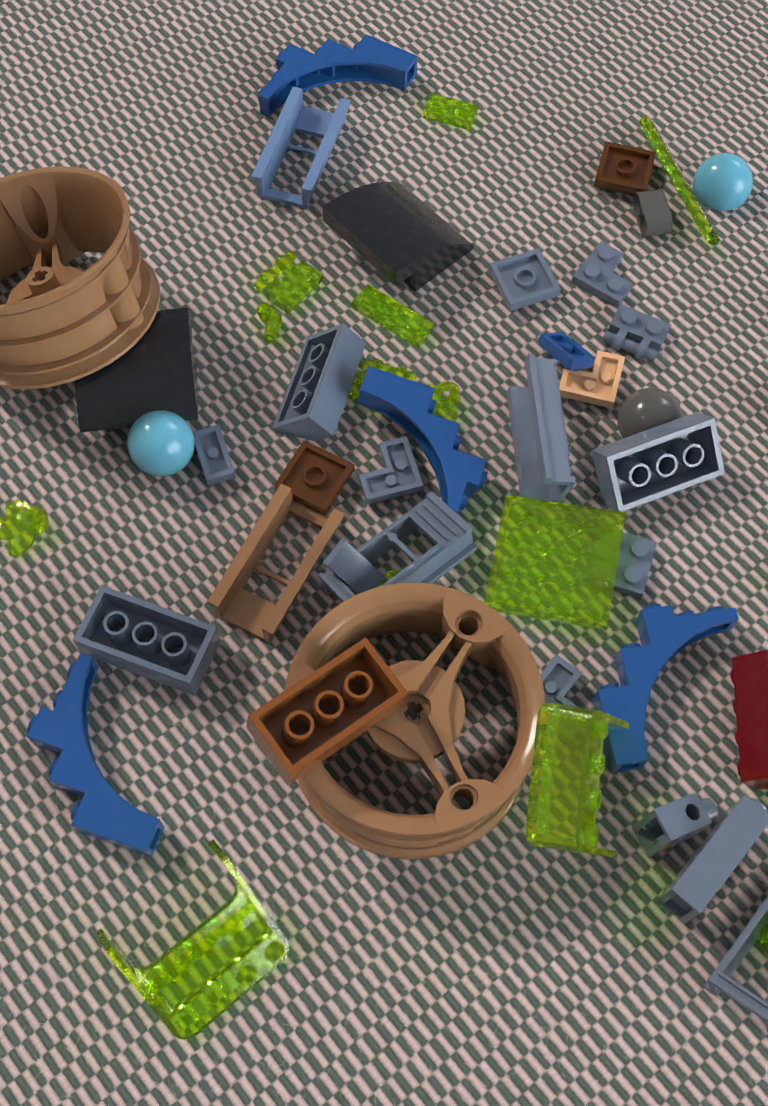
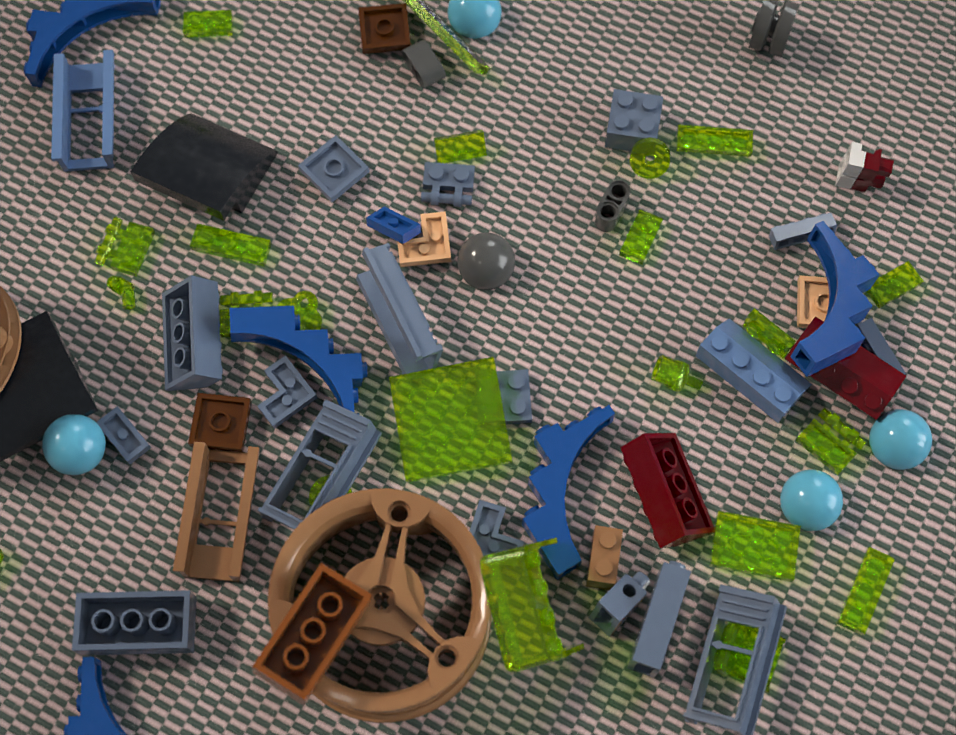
camera: 20 degrees left, 5 degrees up
(353, 568) = (286, 494): sand blue tile -> none
(598, 277) = (395, 141): sand blue plate -> none
(658, 461) = (505, 300): sand blue brick -> none
(663, 301) = (460, 146): none -> clear neon green plate
(673, 767) = (604, 557): none -> medium nougat brick

